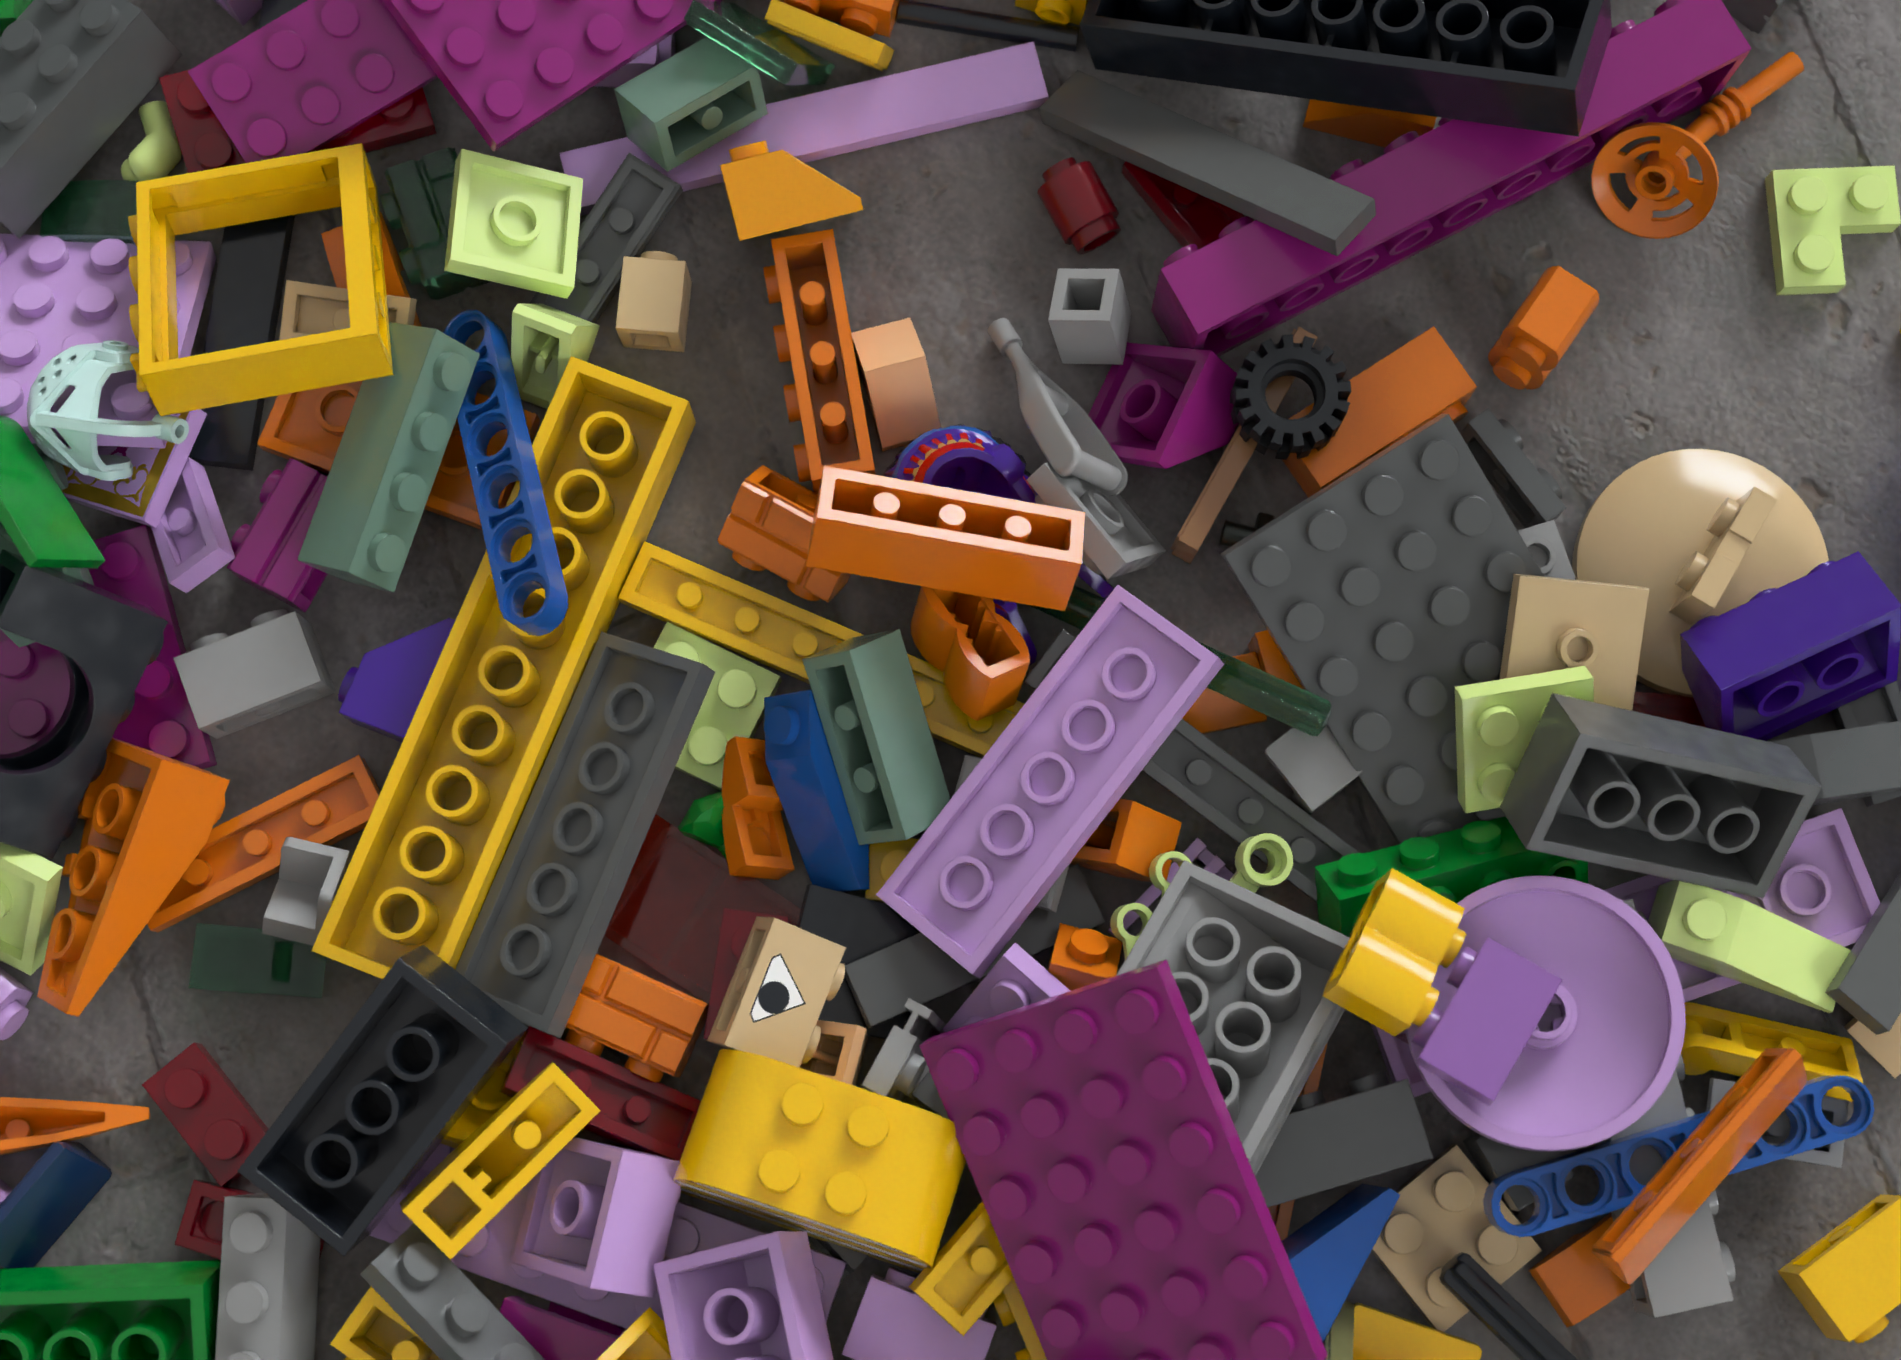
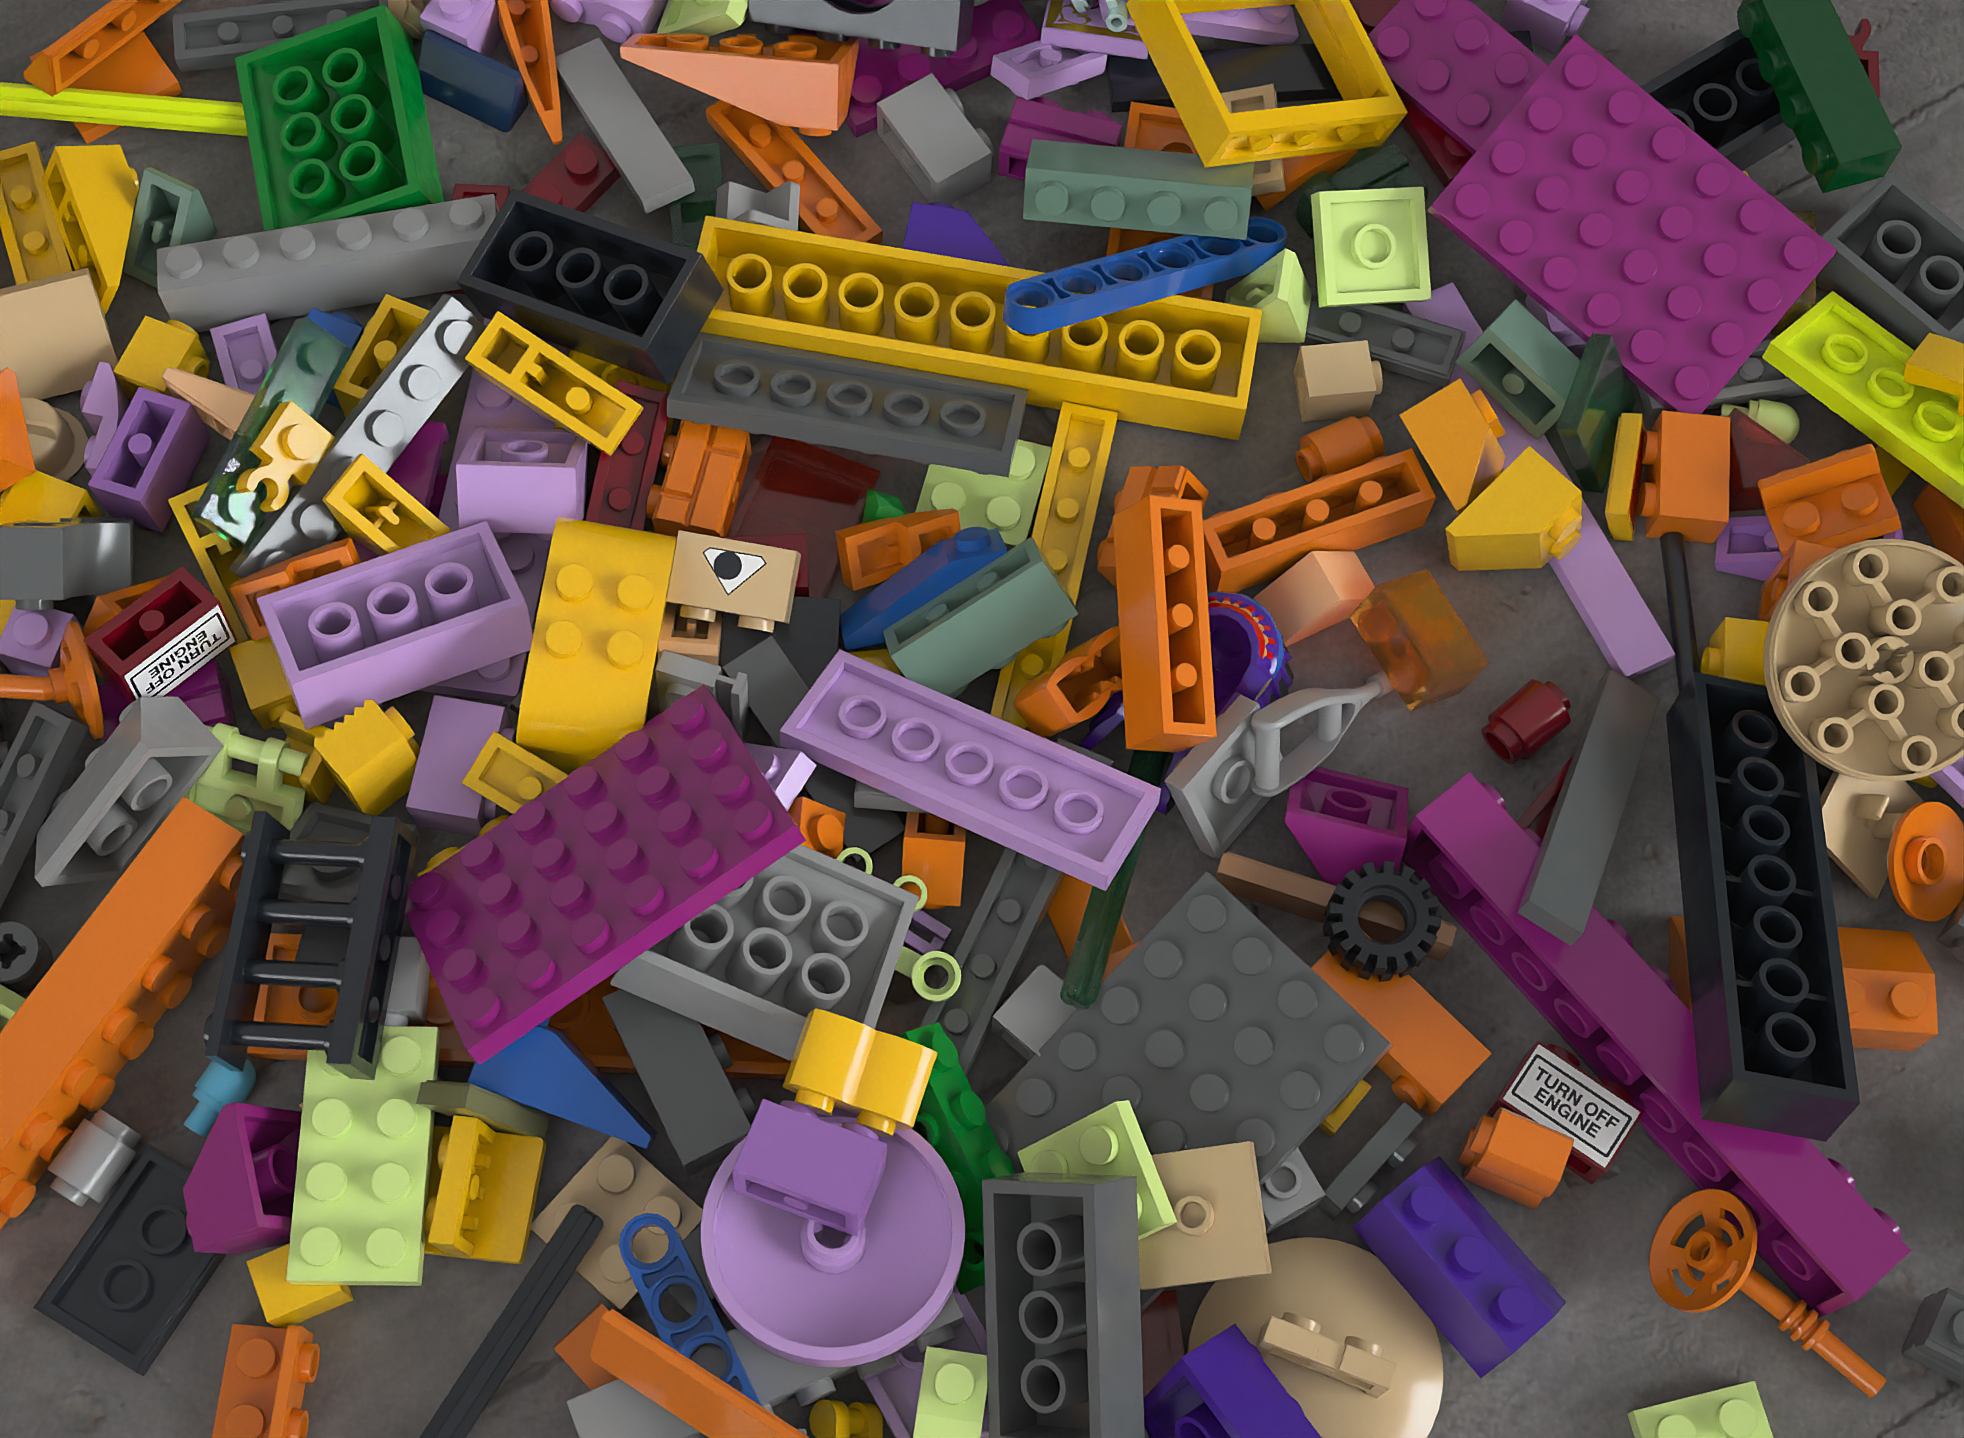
camera: 75 degrees right, 10 degrees down
(147, 1031) = (623, 126): none -> light grey tile
(737, 318) = (1339, 447): none -> orange brick
(871, 146) = (1518, 519): none -> yellow slope
(975, 289) = (1418, 639): none -> clear orange brick
(1090, 316) = (1418, 741): light grey brick -> none
(1490, 273) = (1565, 1098): none -> brick
(1632, 407) = (1459, 1266): none -> dark purple slope

